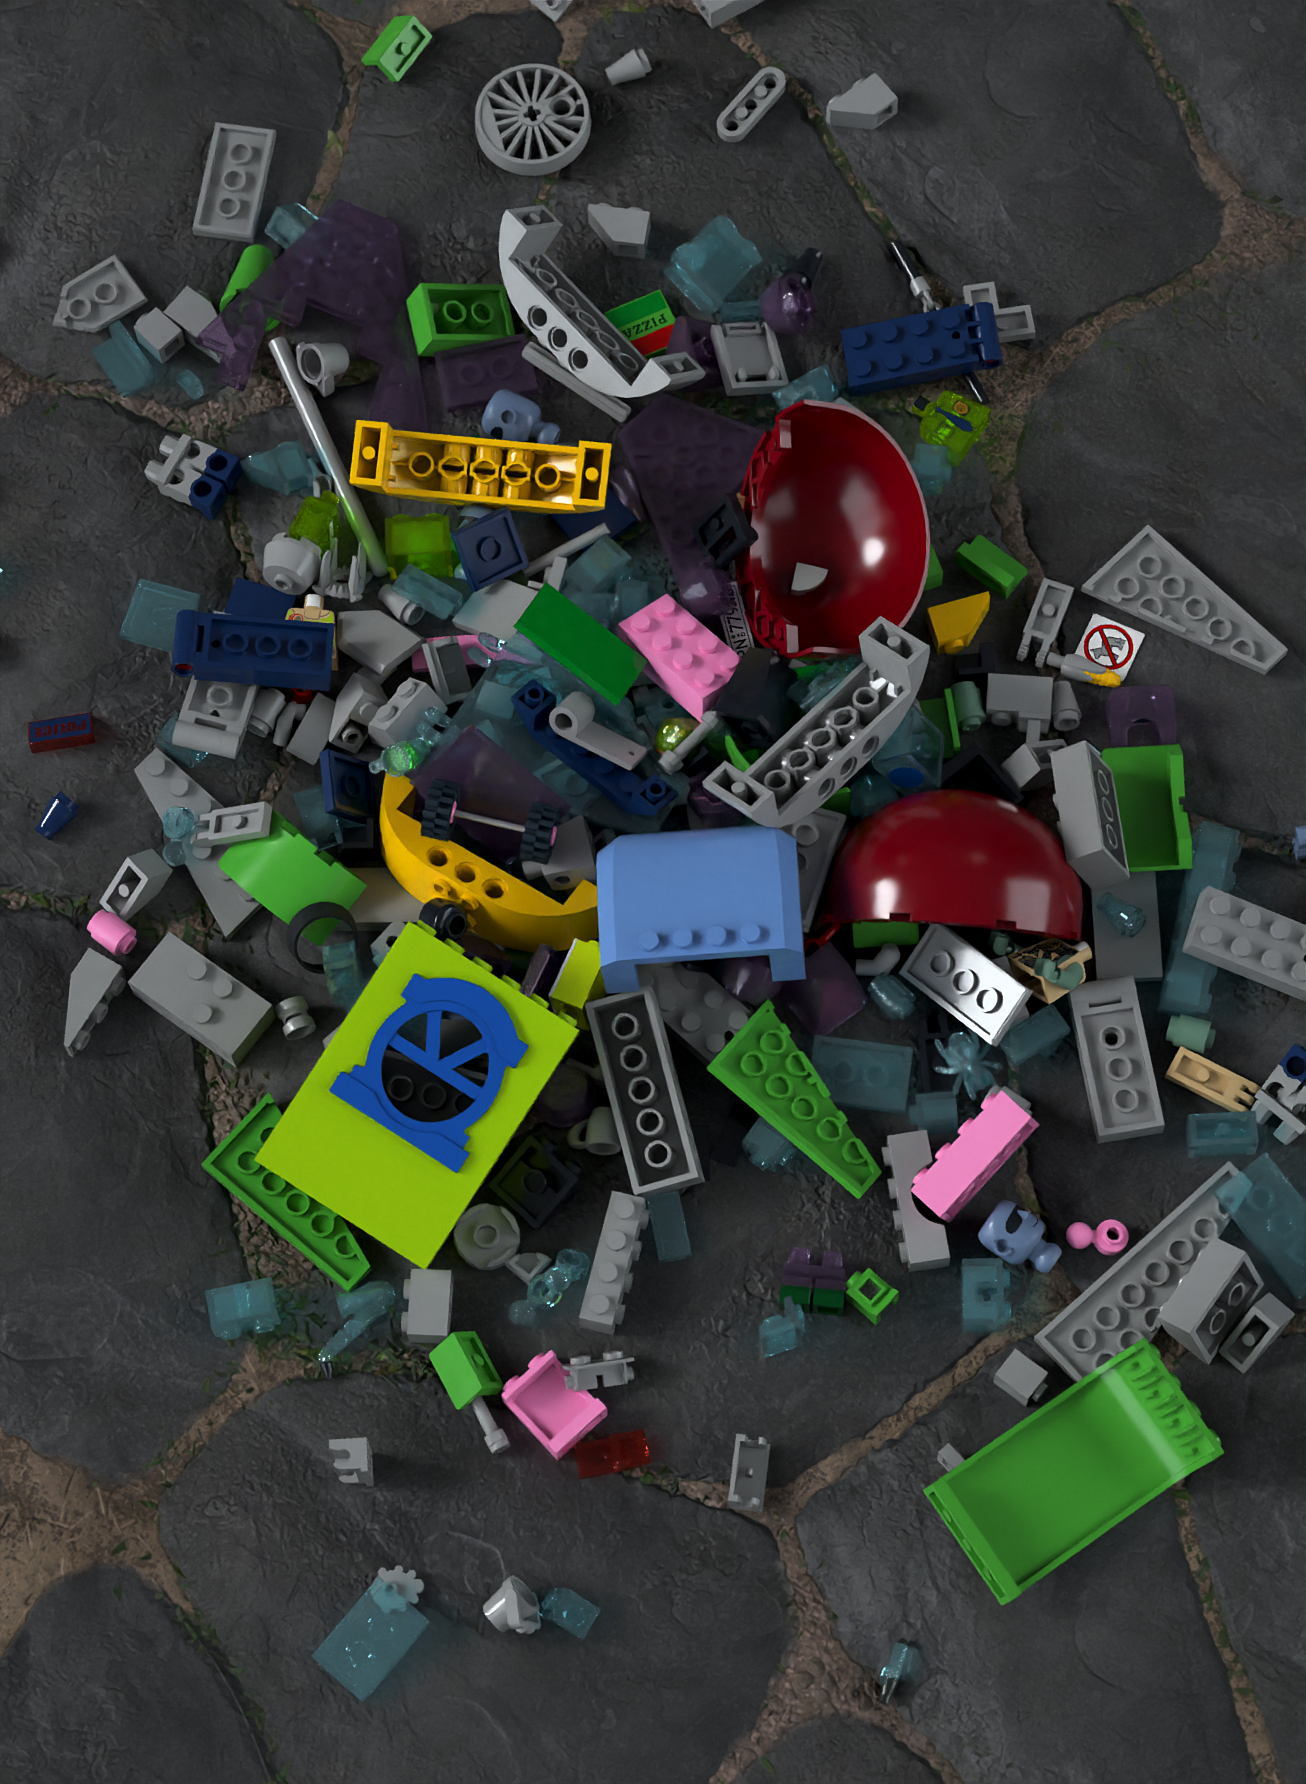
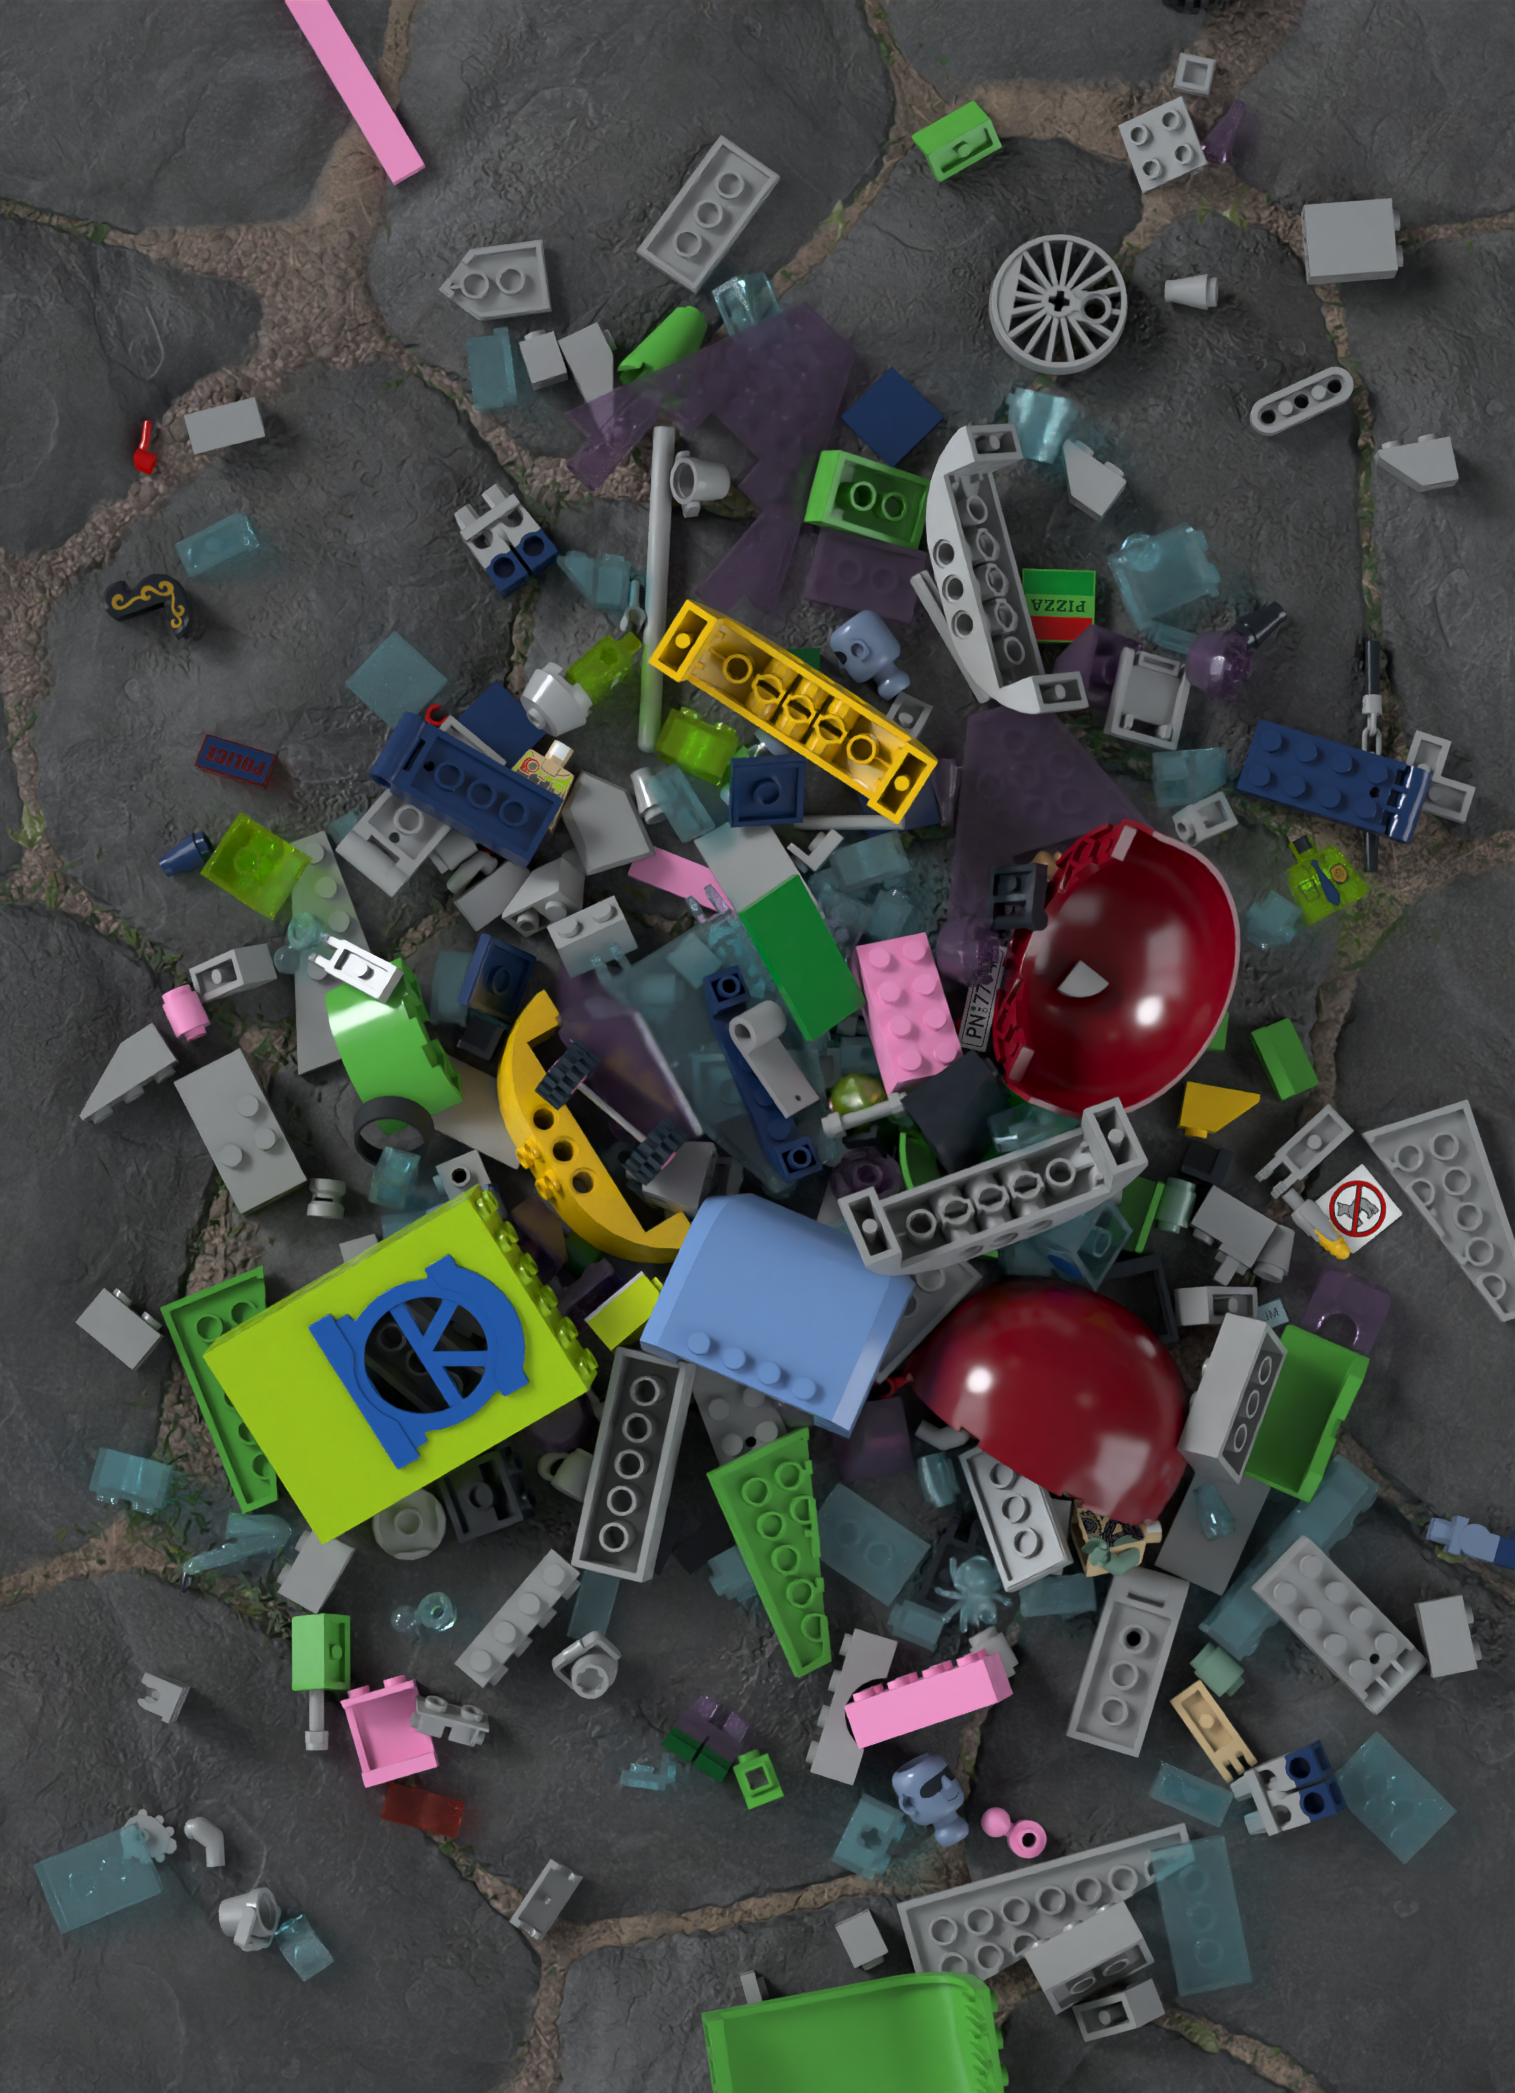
camera: 25 degrees right, 15 degrees up
(115, 792) = (256, 865): none -> clear neon green brick
(177, 1195) = (121, 1328): none -> light grey brick
(190, 384) = (549, 431): clear light blue tile -> none
(355, 574) = (618, 742): light grey piece -> none
(401, 757) = (561, 986): clear light blue piece -> none
(445, 917) = (517, 1185): black head -> none
(447, 255) = (891, 418): none -> dark blue tile
(447, 670) = (660, 900): light grey hinge -> none
(448, 1562) = (210, 1837): none -> light grey arm
(528, 1265) = (435, 1574): light grey tile -> none
(565, 198) = (1040, 422): none -> clear light blue piece
(569, 1267) = (455, 1610): clear light blue plate -> none
(691, 1273) = (592, 1665): none -> light grey piece

